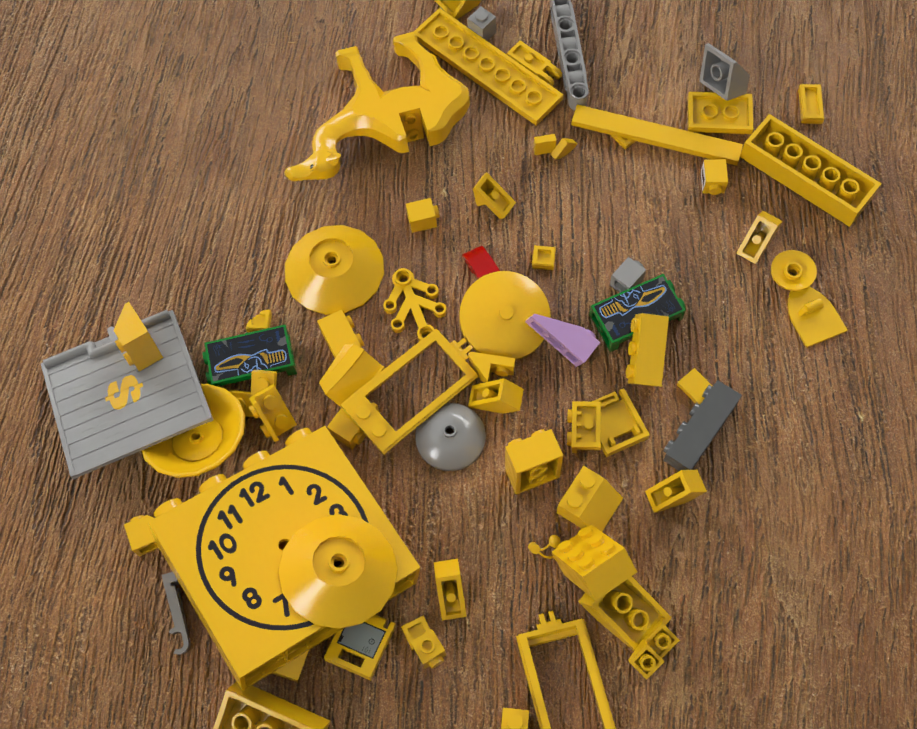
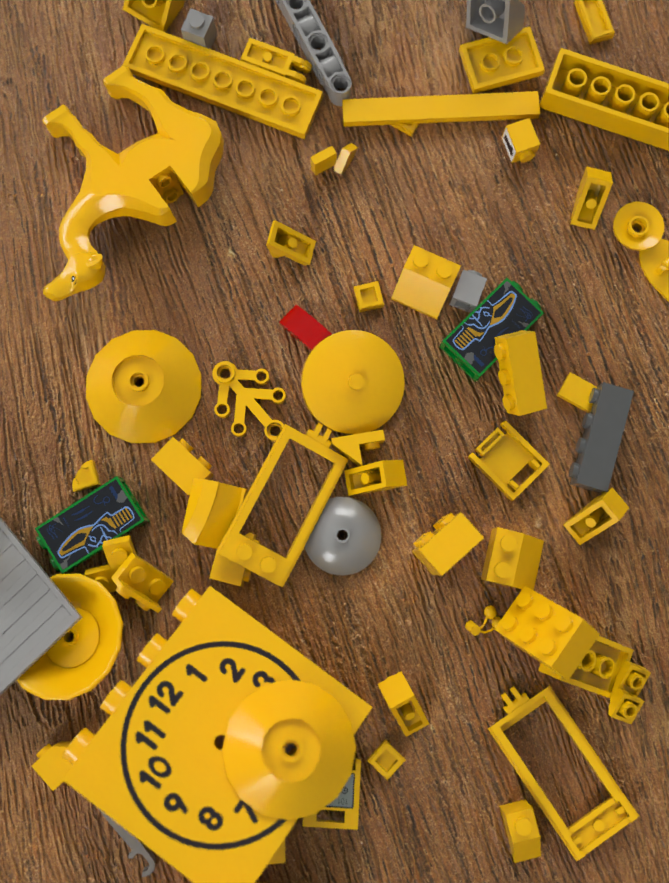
camera: 25 degrees left, 15 degrees up
(422, 215) = (218, 290): yellow brick -> none
(429, 649) = (407, 779): yellow bracket -> none
(569, 339) = (436, 388): lavender slope -> none
(585, 426) = (481, 479): yellow bracket -> none
(594, 259) = (425, 282): none -> yellow slope

